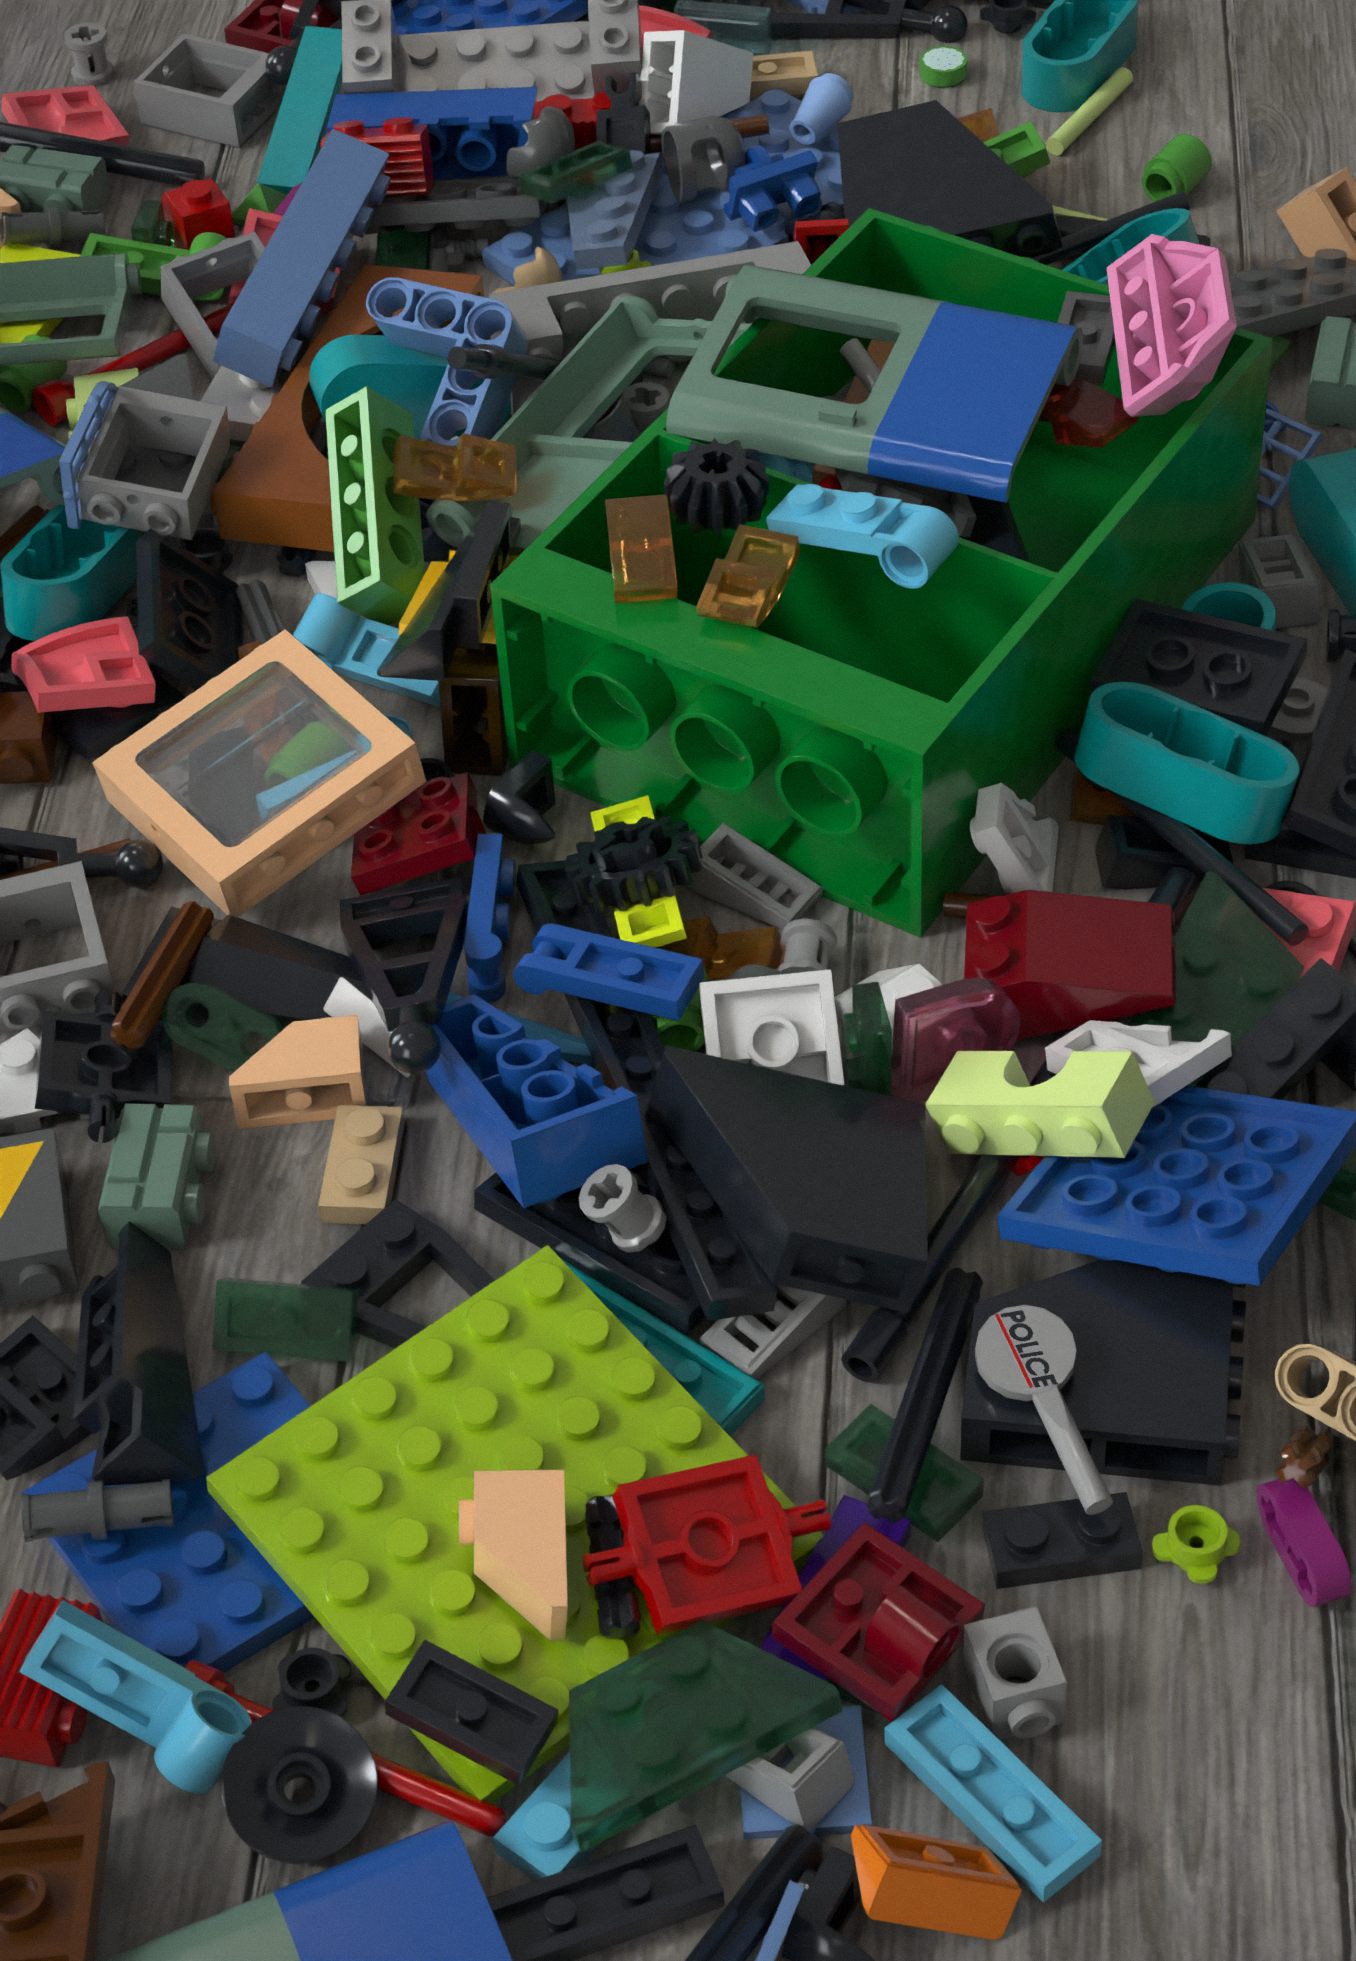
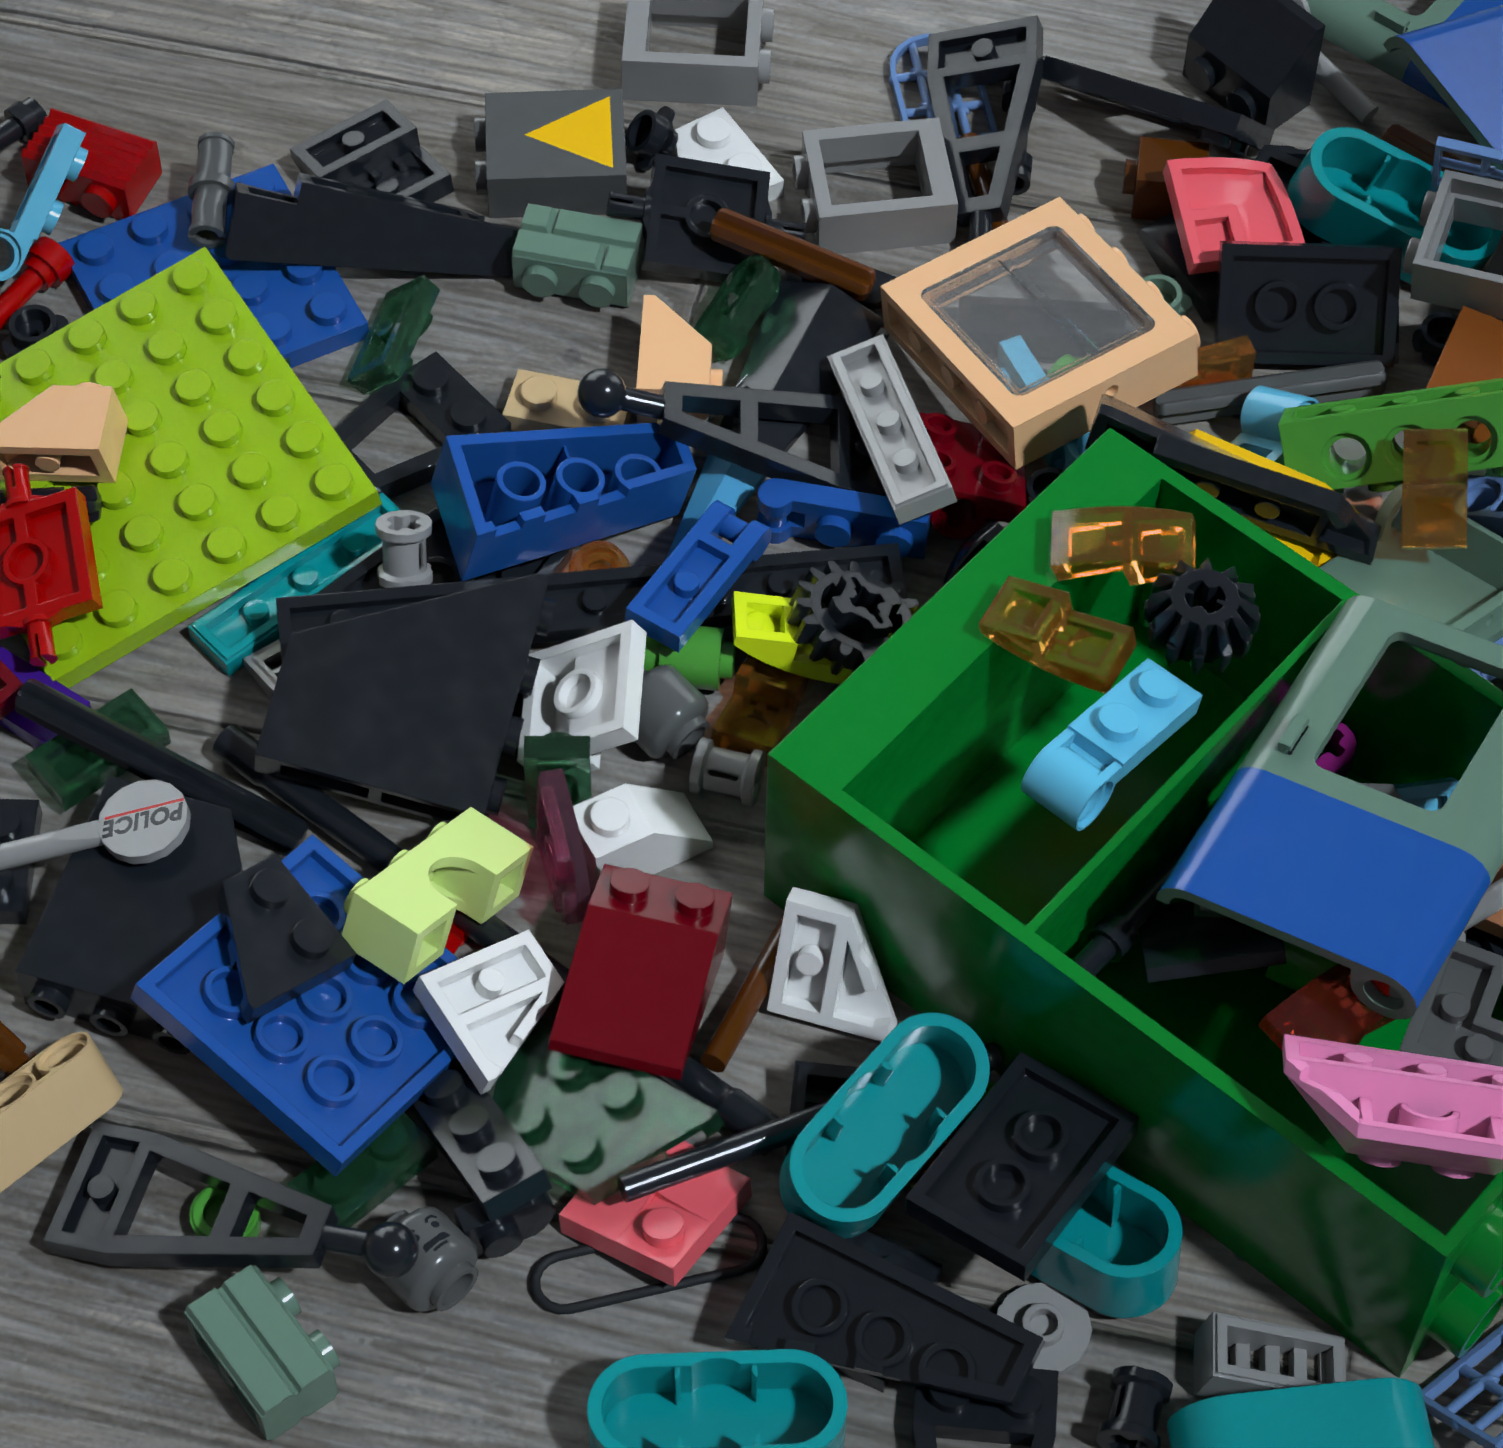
camera: 95 degrees right, 10 degrees up
(399, 858) = (892, 429): none -> light grey tile
(1146, 1189) = (277, 937): none -> black wing

